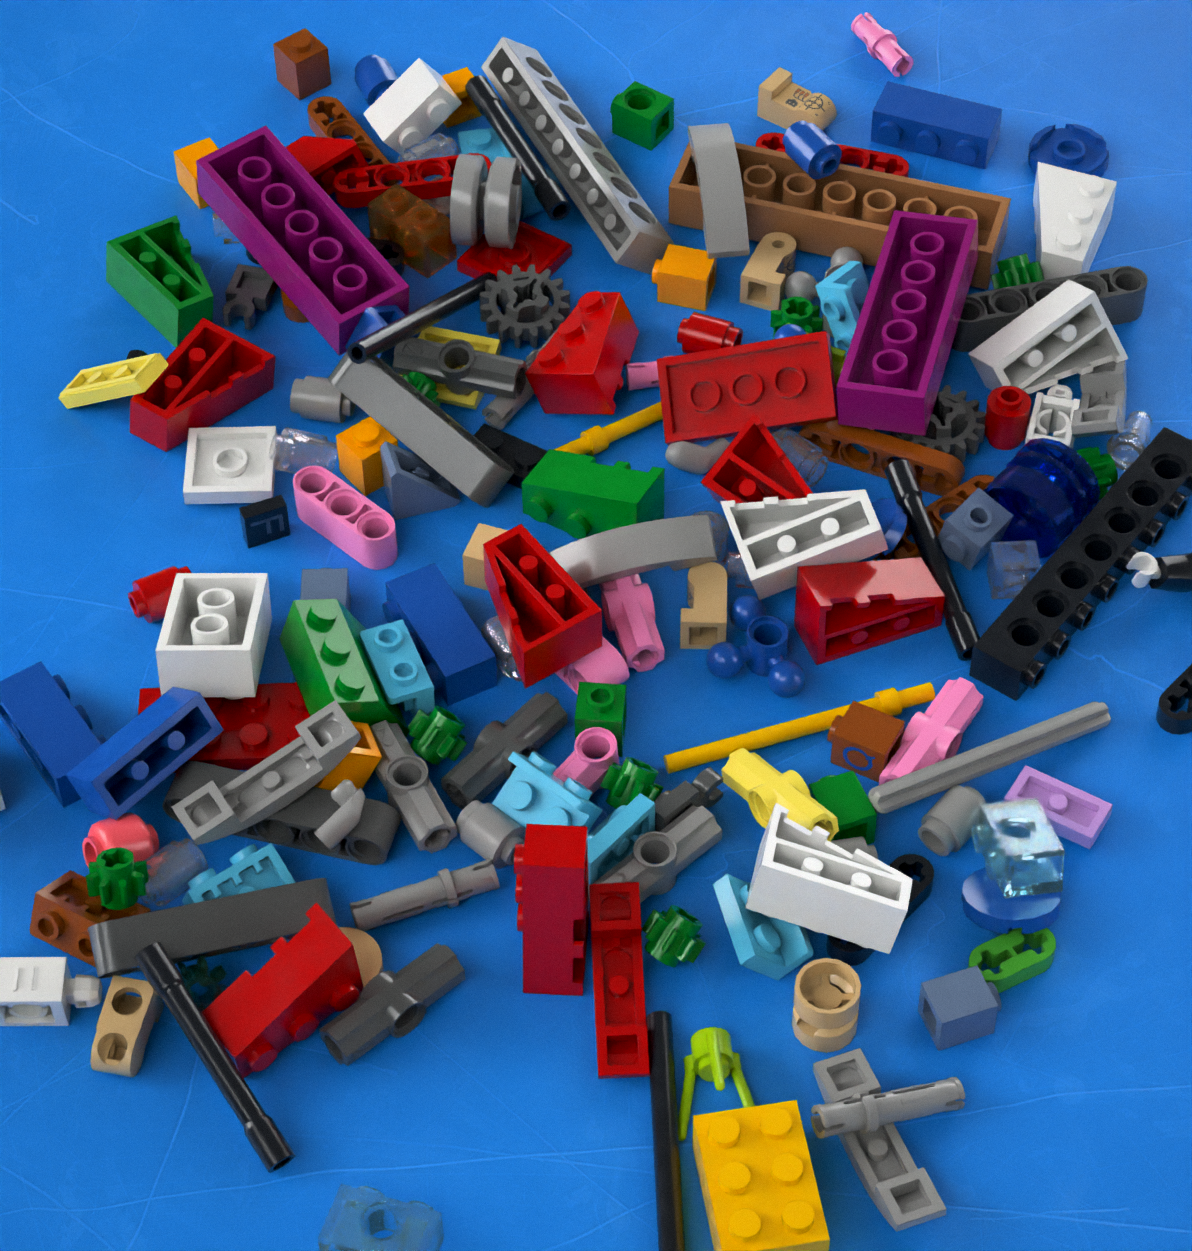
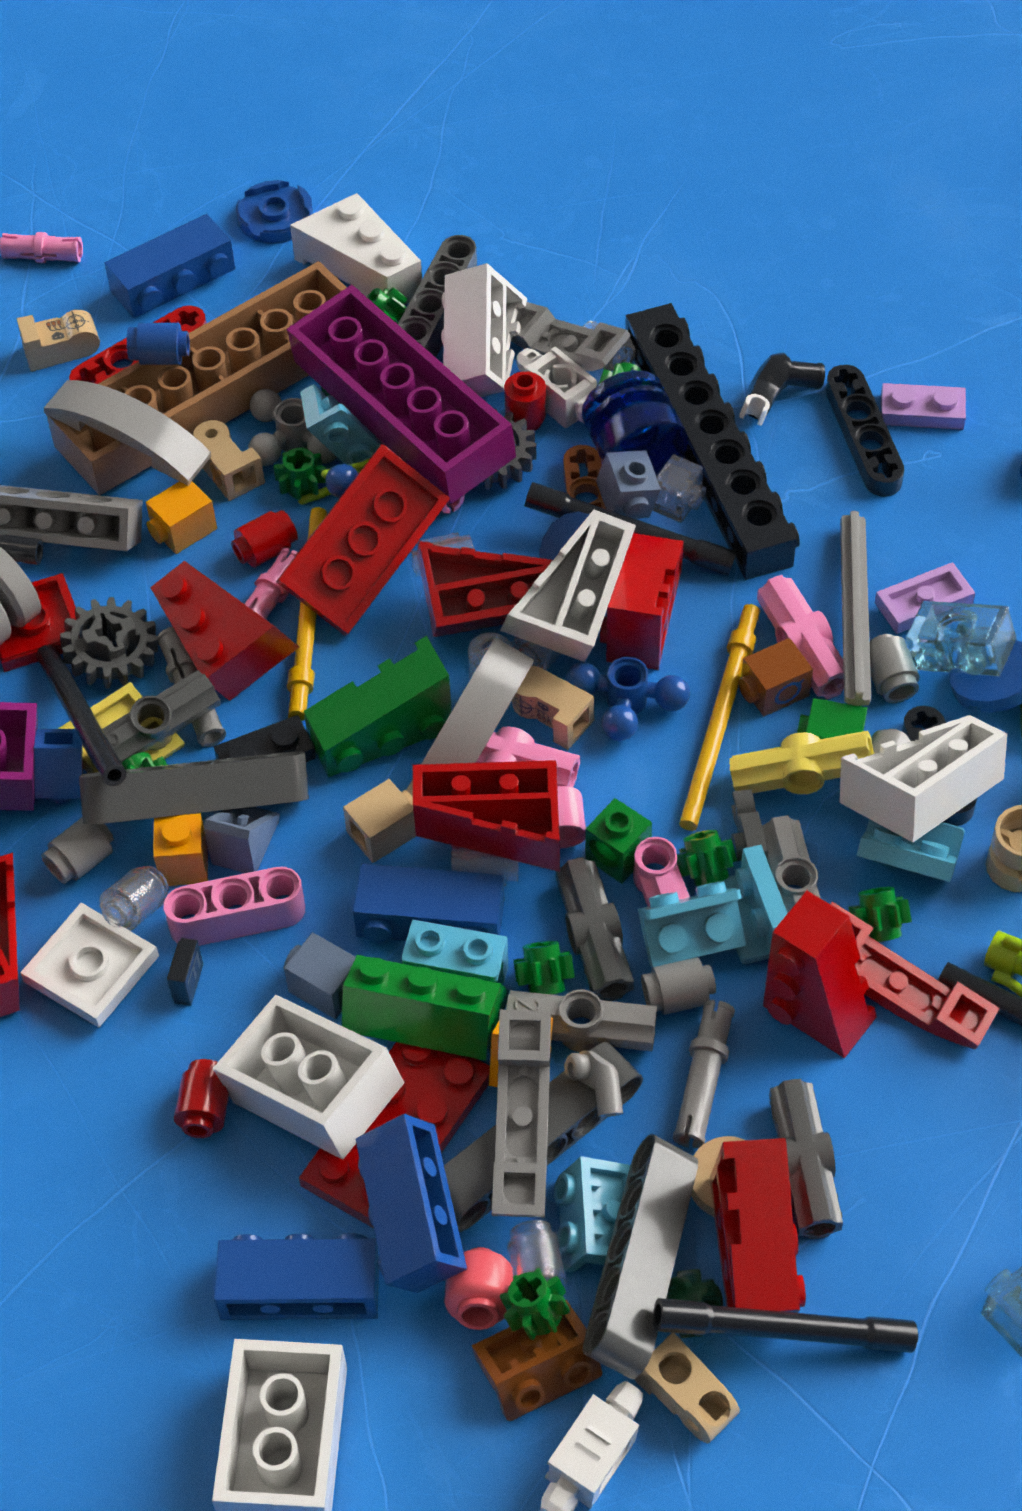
camera: 55 degrees left, 5 degrees up
(694, 457) = (380, 623): light grey arm -> none
(940, 472) = (489, 500): dark orange beam -> none

